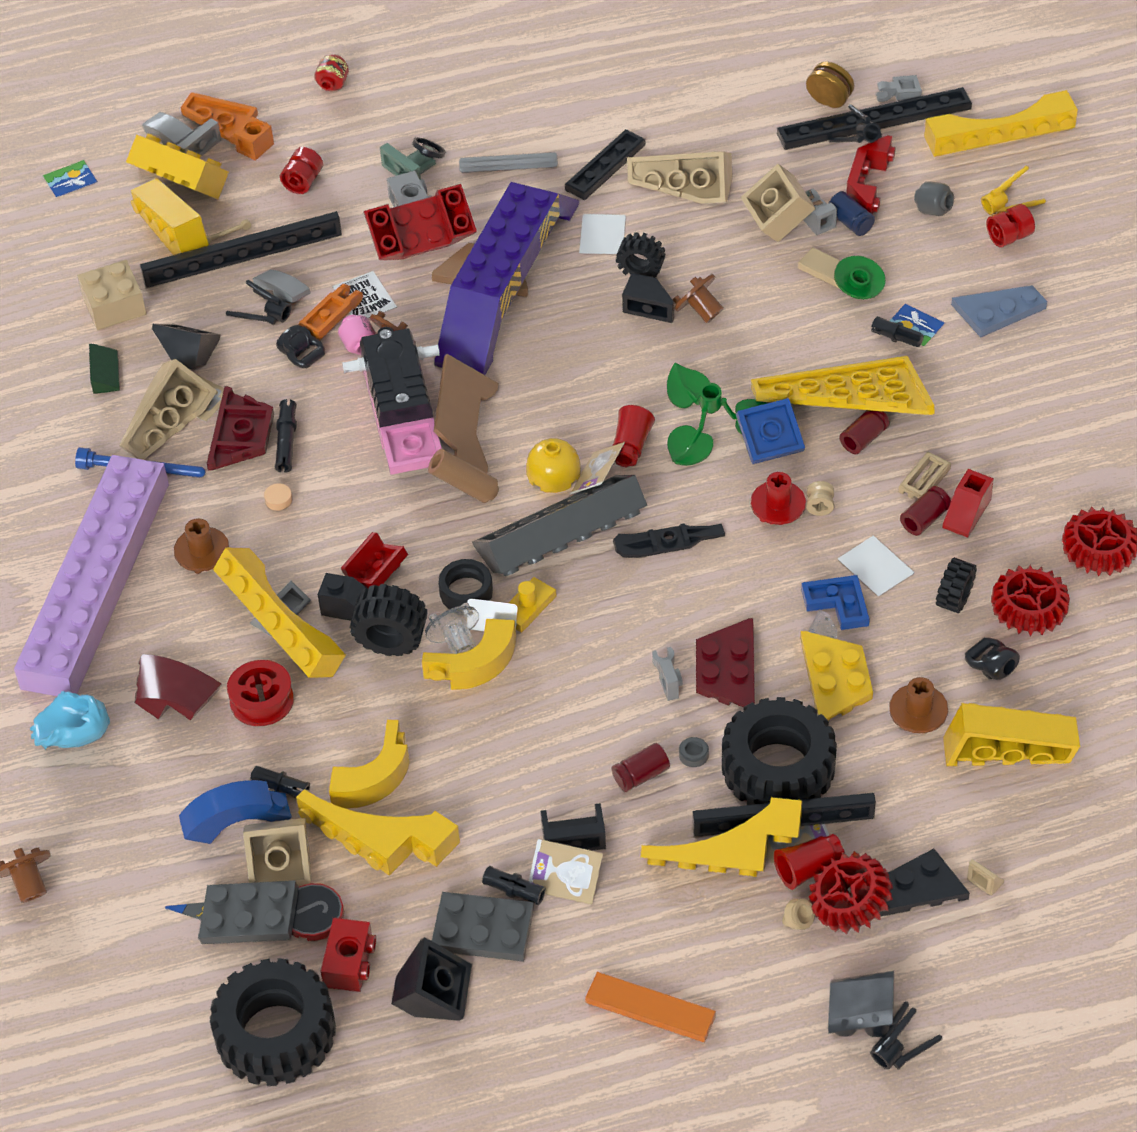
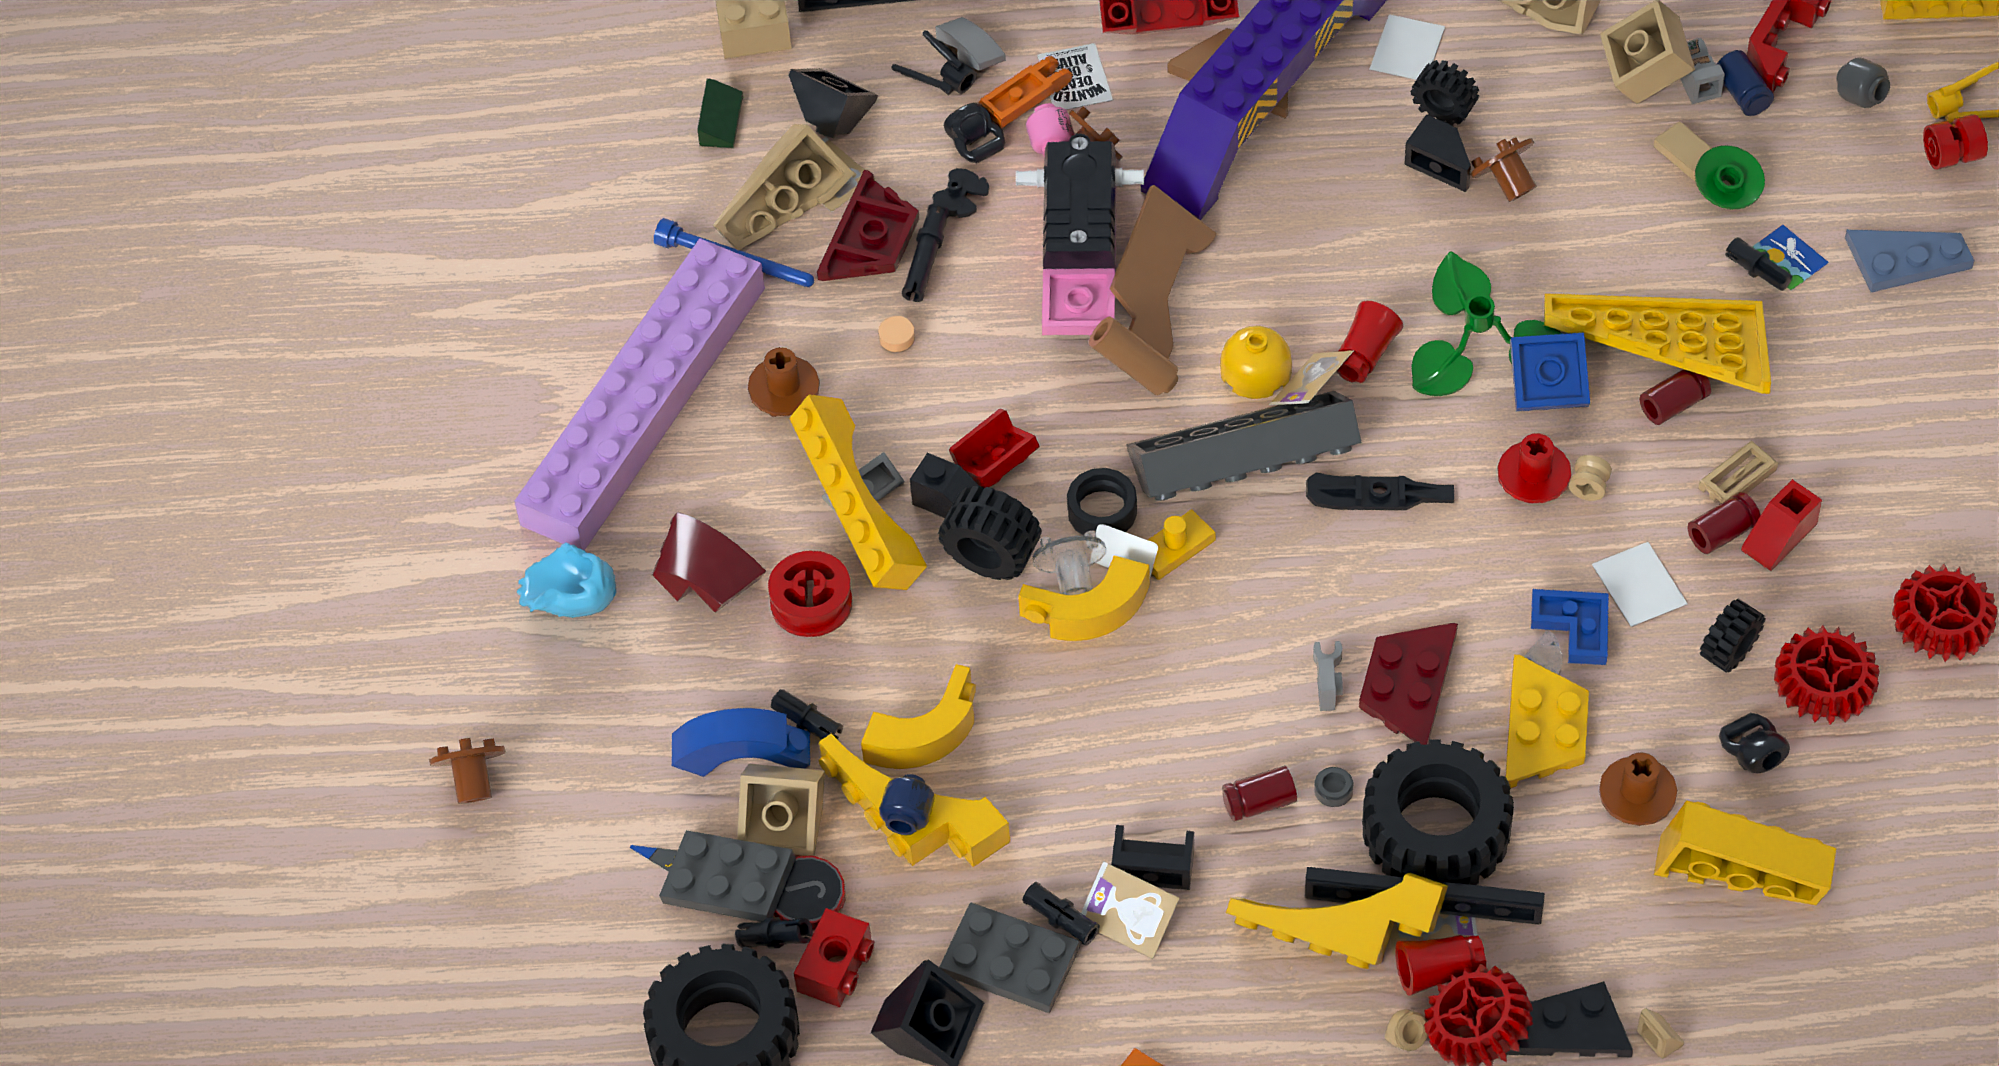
camera: 15 degrees right, 5 degrees up
(297, 945) = (774, 933): none -> black pin
(298, 385) = (954, 196): none -> black piece
(377, 827) = (906, 804): none -> dark blue head

